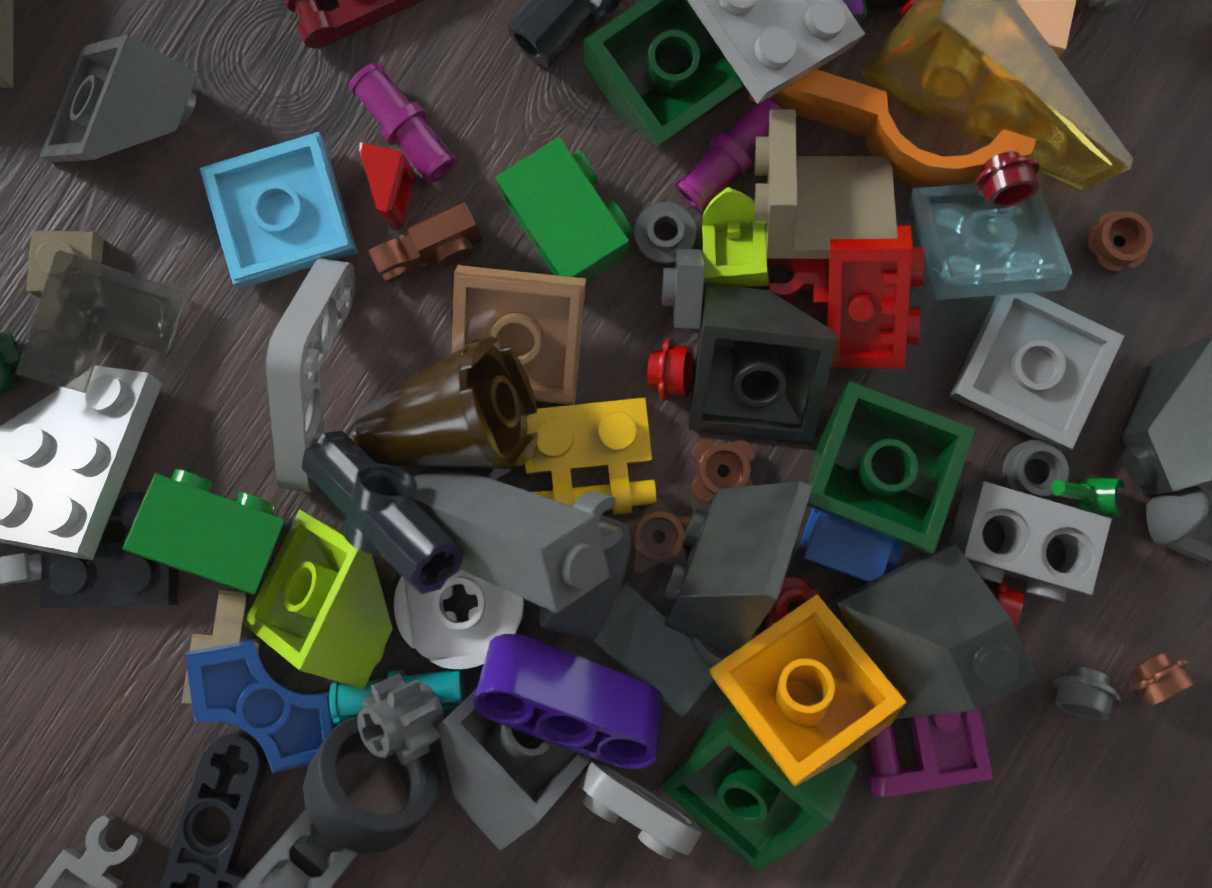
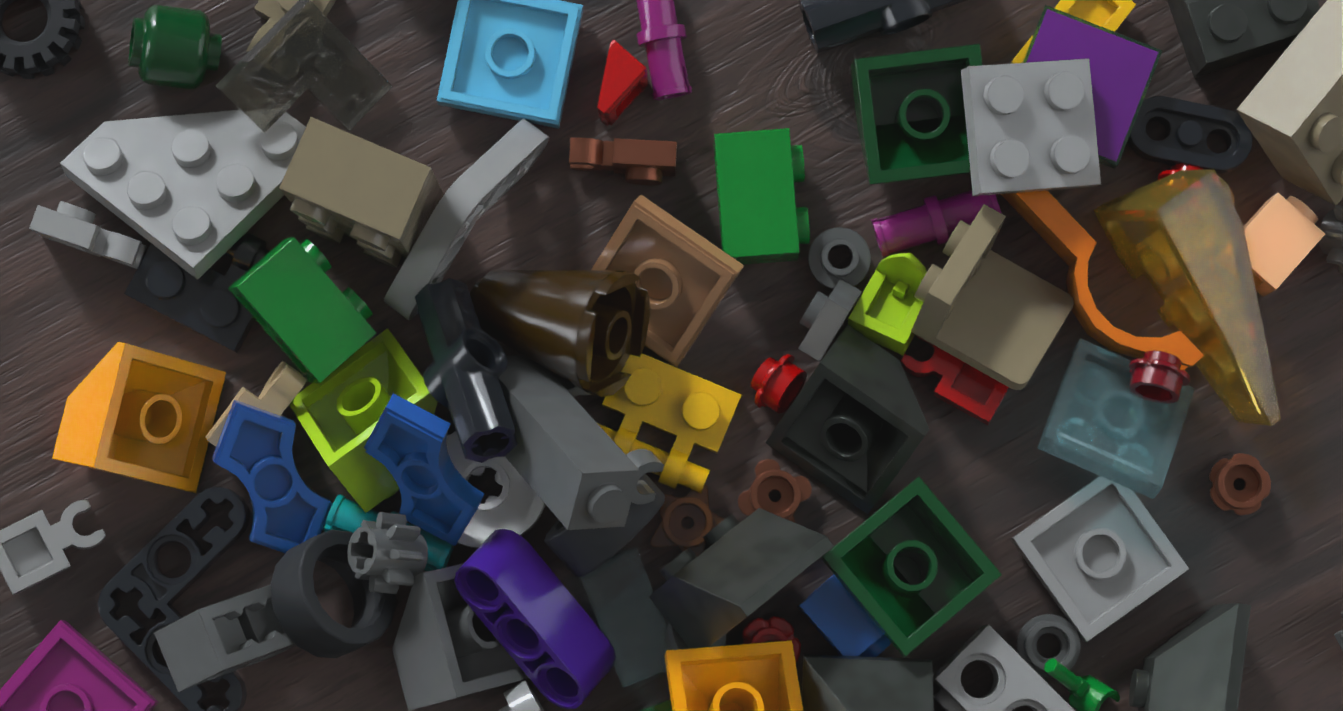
camera: 25 degrees right, 0 degrees up
(111, 713) = (142, 417): none -> light orange slope
(182, 395) = (359, 191): none -> dark tan brick
(374, 613) = (416, 454): none -> blue tile
(871, 300) = (980, 419): red bracket -> none

